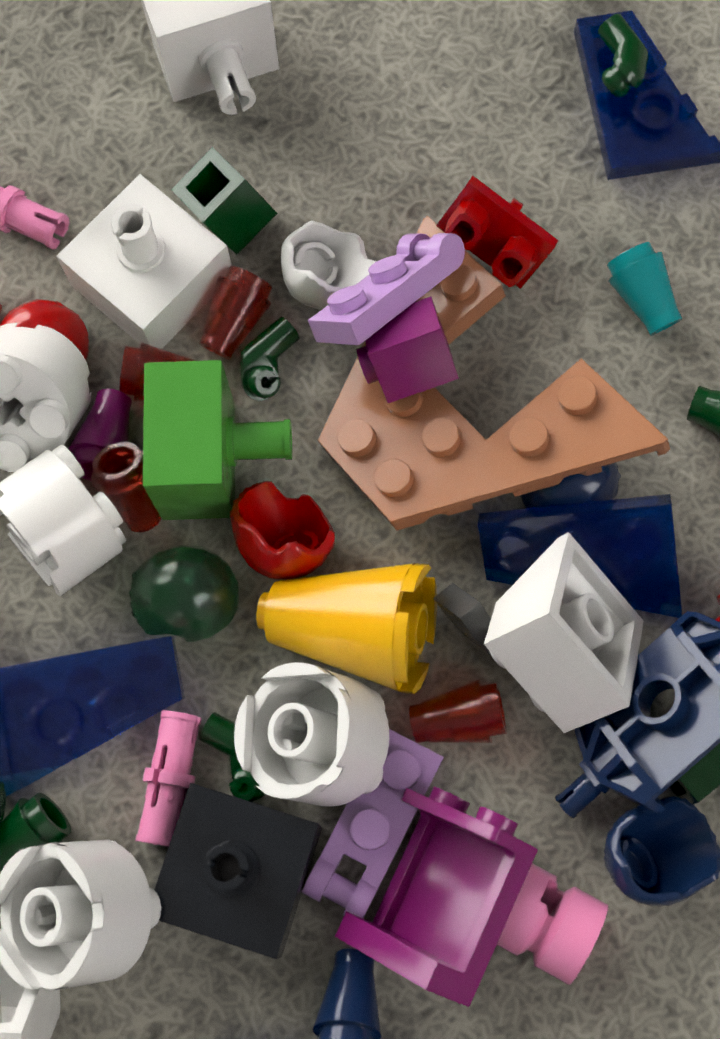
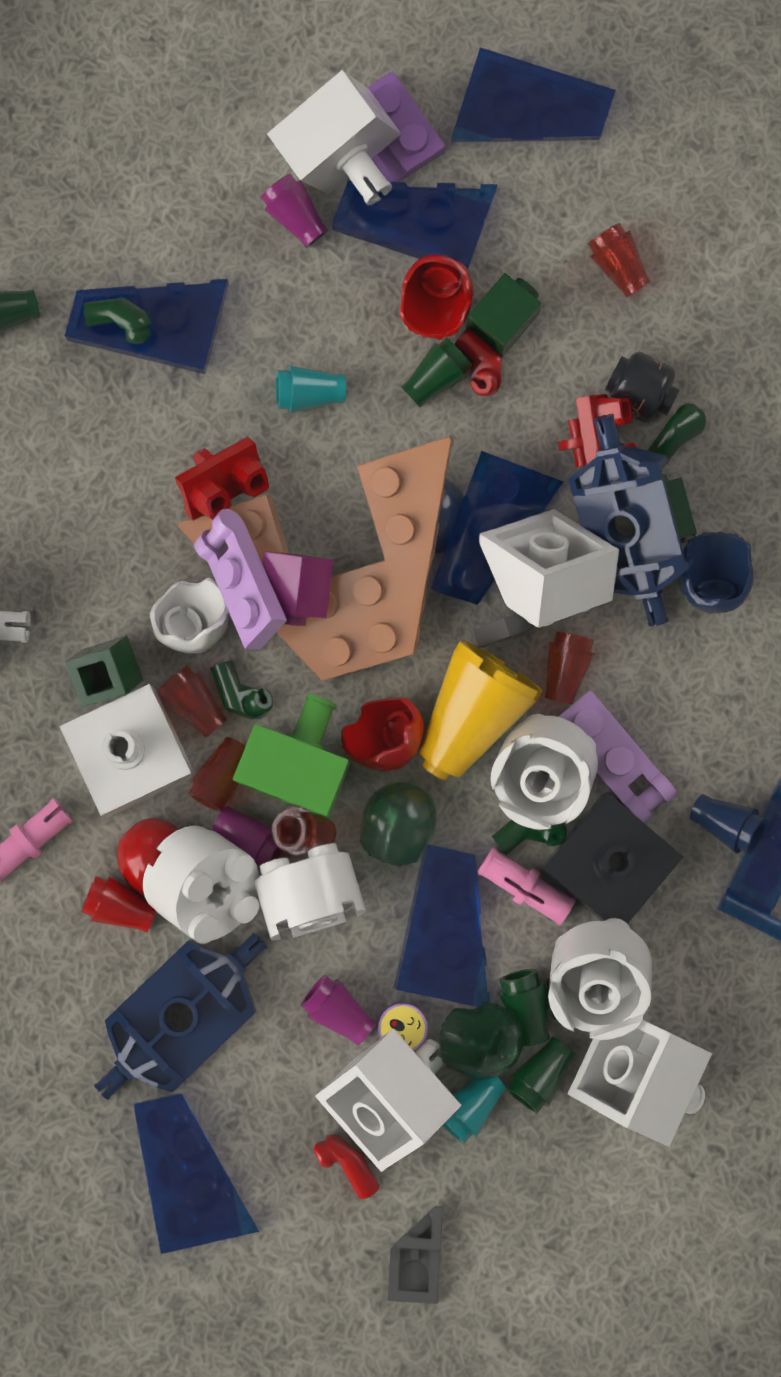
camera: 70 degrees left, 10 degrees up
(446, 897) = (688, 728): magenta panel -> none
(553, 925) = (730, 668): bright pink wheel -> none

